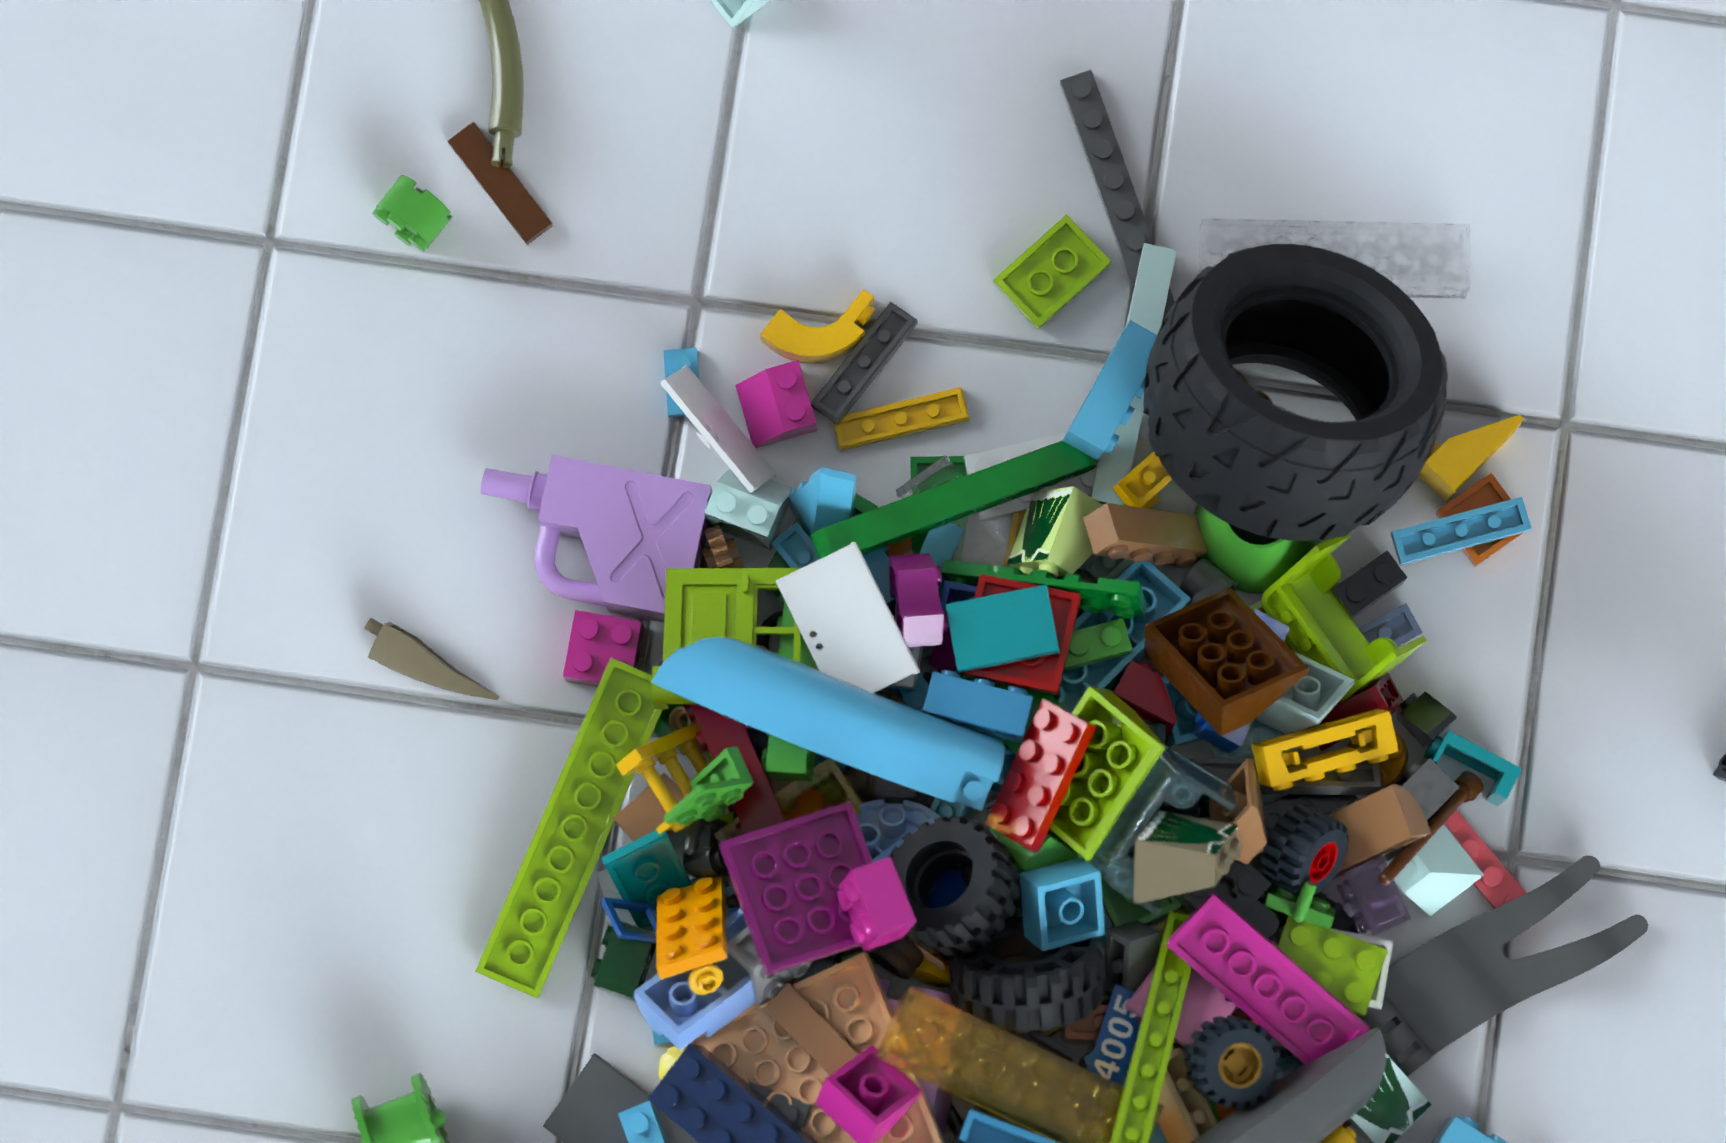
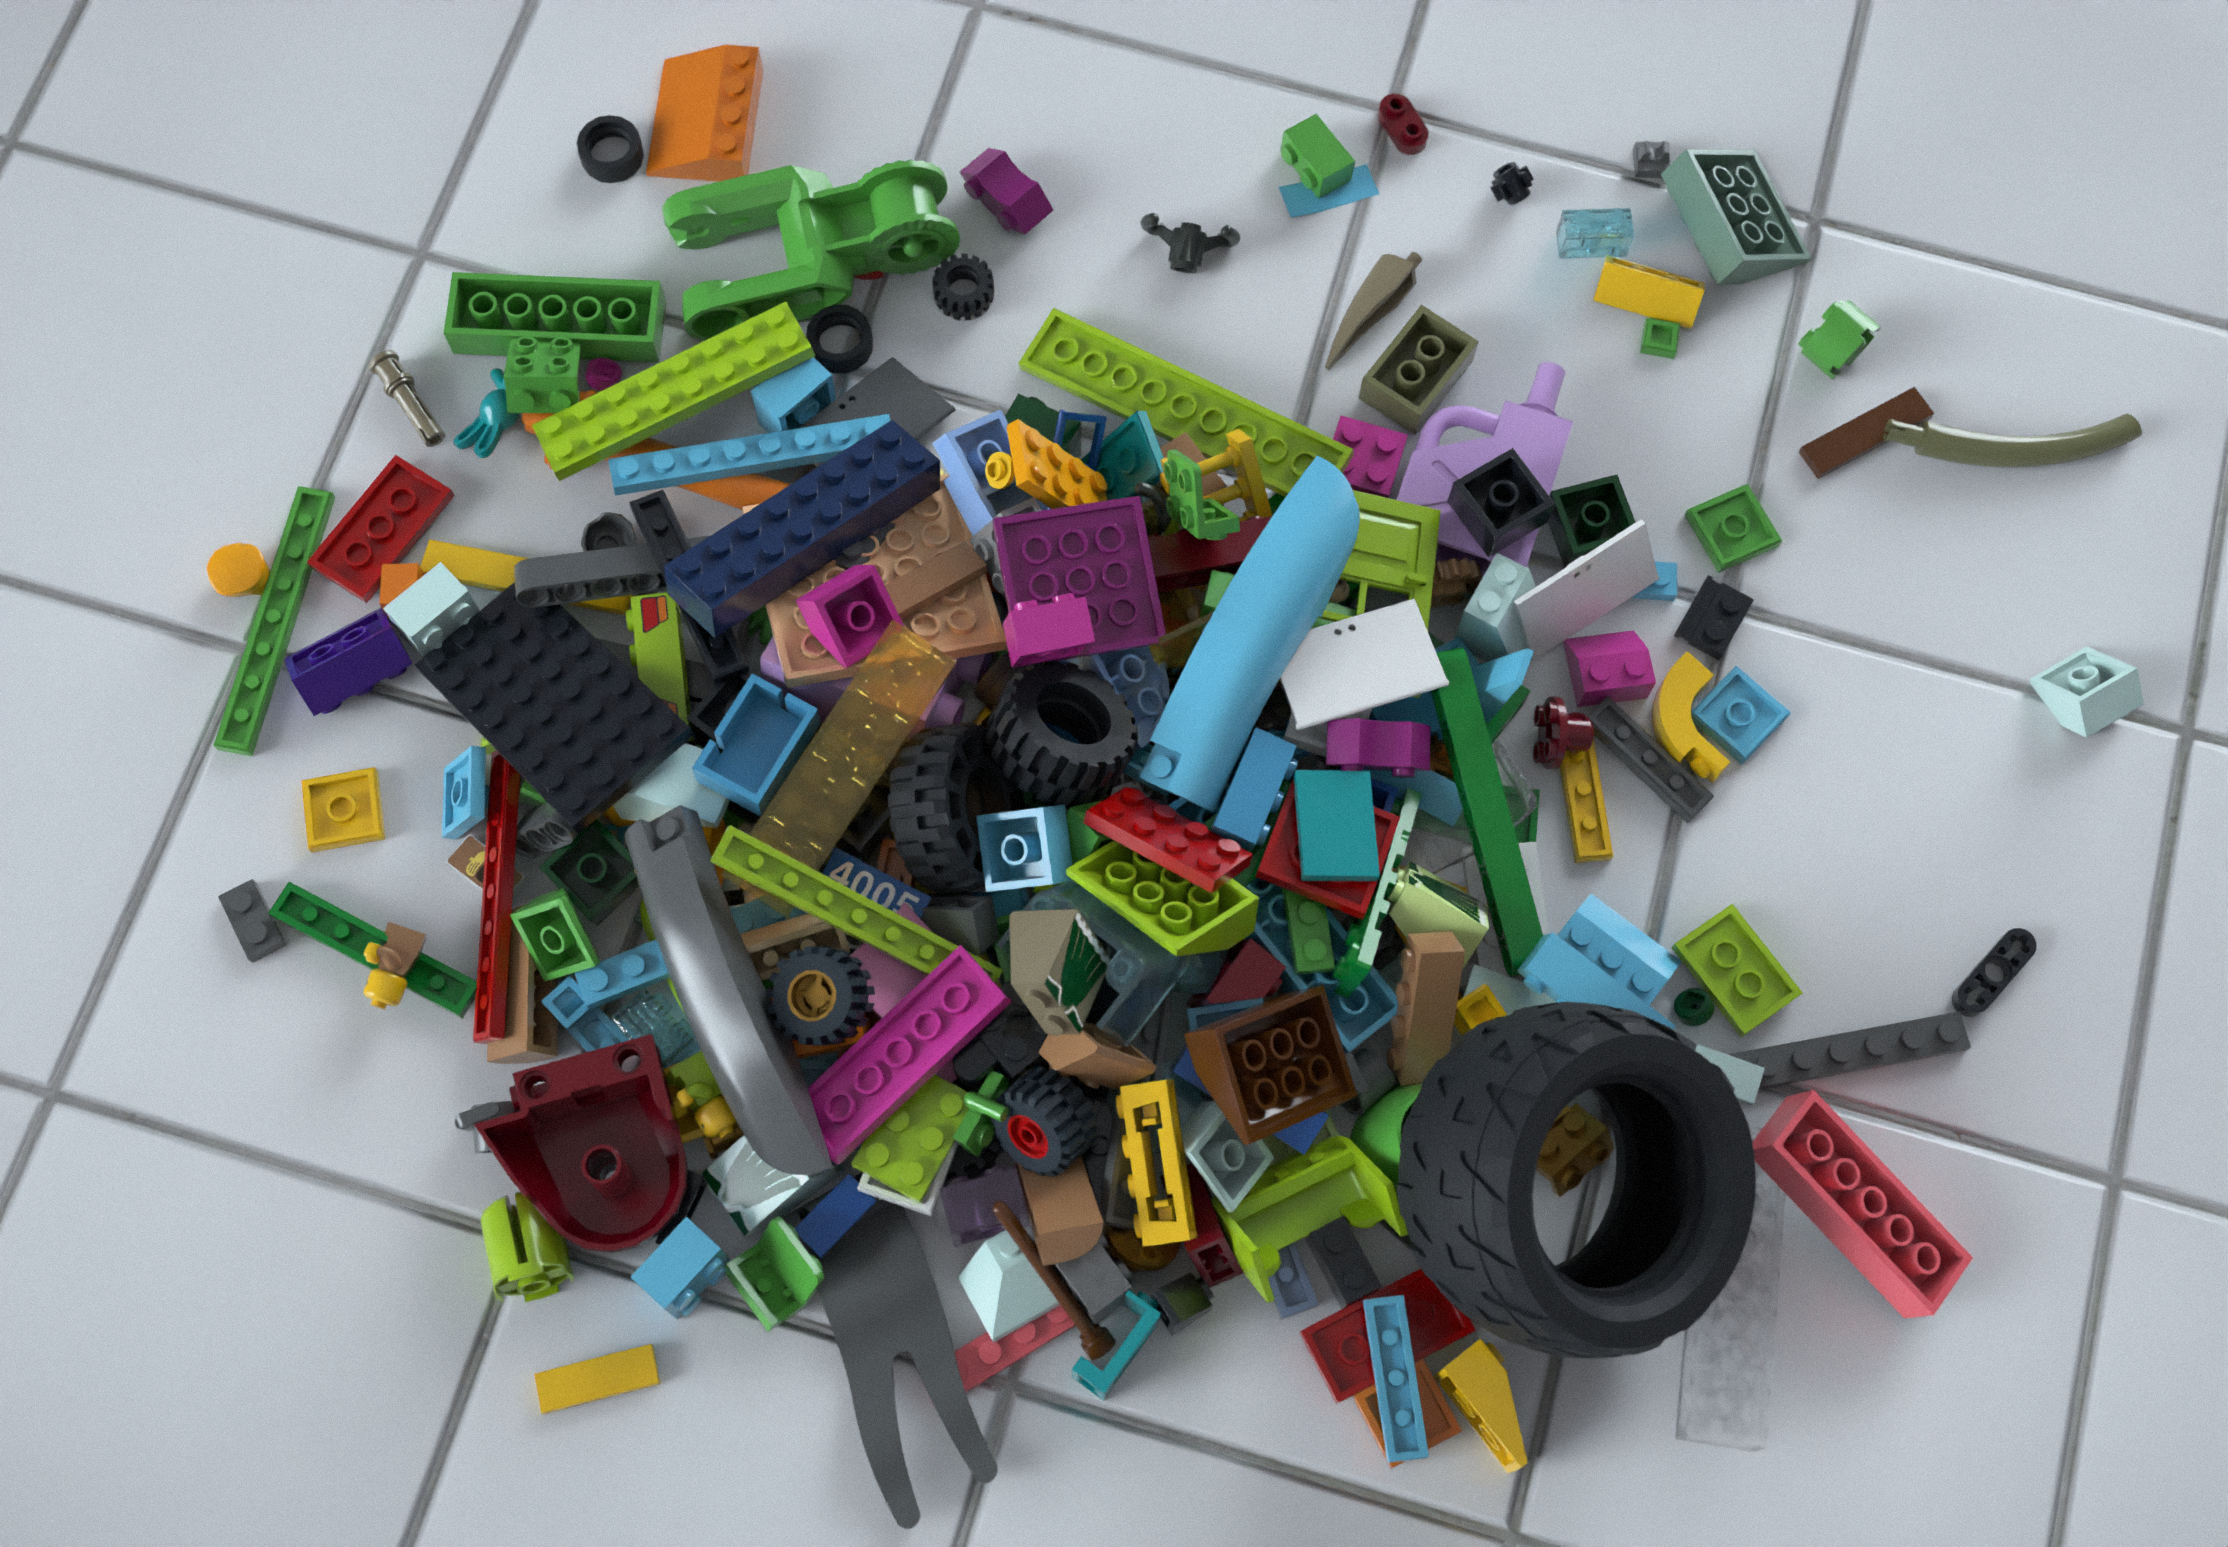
camera: 90 degrees right, 10 degrees down
(211, 654) = (1400, 122): none -> dark red plate
(222, 404) = (1651, 159): none -> flat silver tile
(265, 734) = (1317, 156): none -> bright green brick
(273, 537) = (1511, 183): none -> black gear
(279, 318) = (1734, 214): none -> sand green slope
(296, 719) = (1303, 201): none -> medium azure sticker
(320, 452) = (1595, 233): none -> clear light blue brick
(346, 1040) = (1006, 191): none -> magenta brick
(373, 395) = (1649, 291): none -> yellow panel
(381, 848) = (1188, 242): none -> pearl dark grey piece
(422, 382) = (1660, 338): none -> bright green tile
(437, 1060) = (961, 269): none -> black tyre
(497, 608) = (1418, 369): none -> olive brick
(616, 301) = (1733, 528): none -> bright green tile
(638, 430) = (1588, 516): none -> dark green brick
(658, 512) = (1500, 502): none -> black brick
(711, 313) = (1713, 617): none -> black plate
(805, 284) = (1739, 715): none -> medium azure tile
(856, 443) = (1559, 733): none -> dark red plate
(1017, 38) = (2009, 967): none -> black beam
(1053, 377) = (1619, 948): none -> medium azure slope
(1091, 306) = (1694, 1006): none -> dark green tile
(1256, 158) = (1860, 1205): none -> coral brick
(1403, 1028) = (834, 1216): none -> blue tile
(1433, 580) = (1342, 1344): none -> red plate
(1459, 1071) = (776, 1274): none -> bright green bracket

